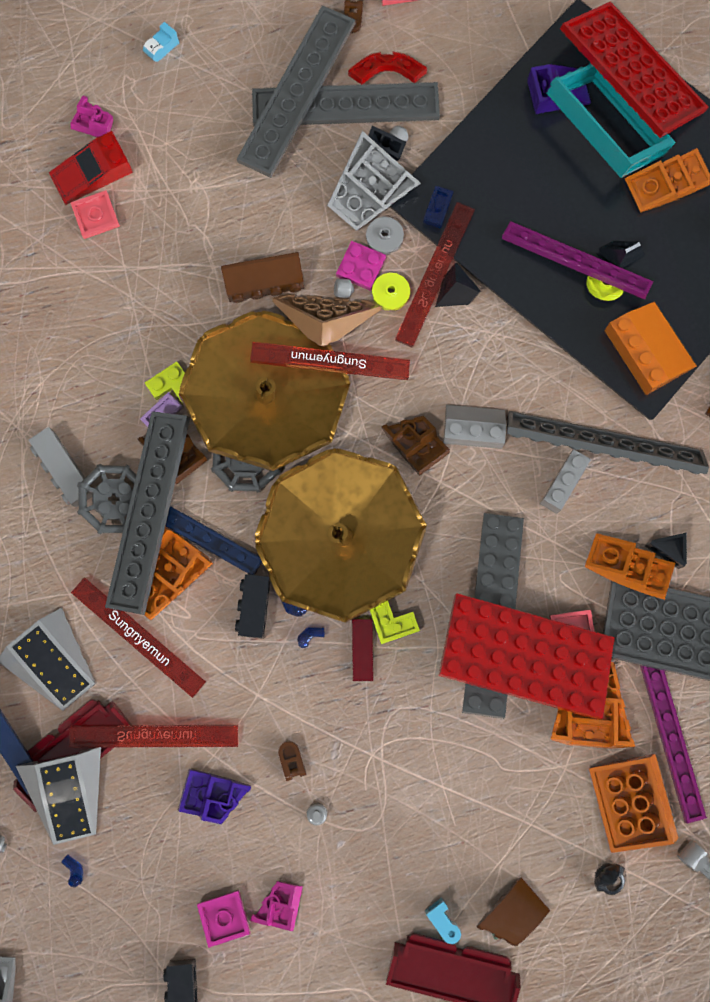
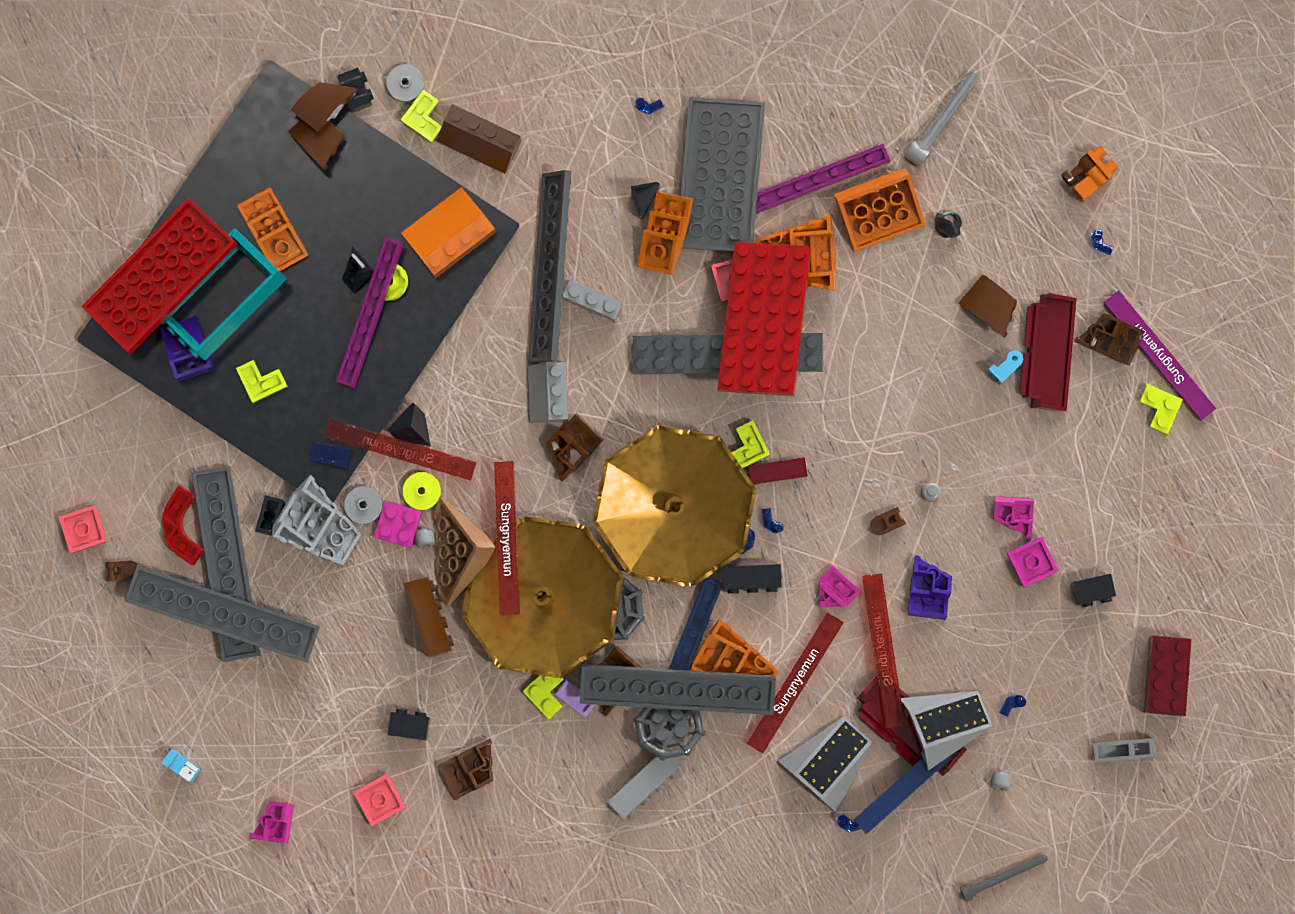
camera: 95 degrees left, 5 degrees up
(91, 168) = (331, 814): red slope -> none
(108, 300) = (468, 770): none -> reddish brown slope
(161, 249) = (408, 725): none -> black brick
(228, 695) = (836, 589): none -> dark pink slope
(399, 132) = (254, 505): light grey piece -> none
(515, 149) = (258, 386): none -> neon yellow plate

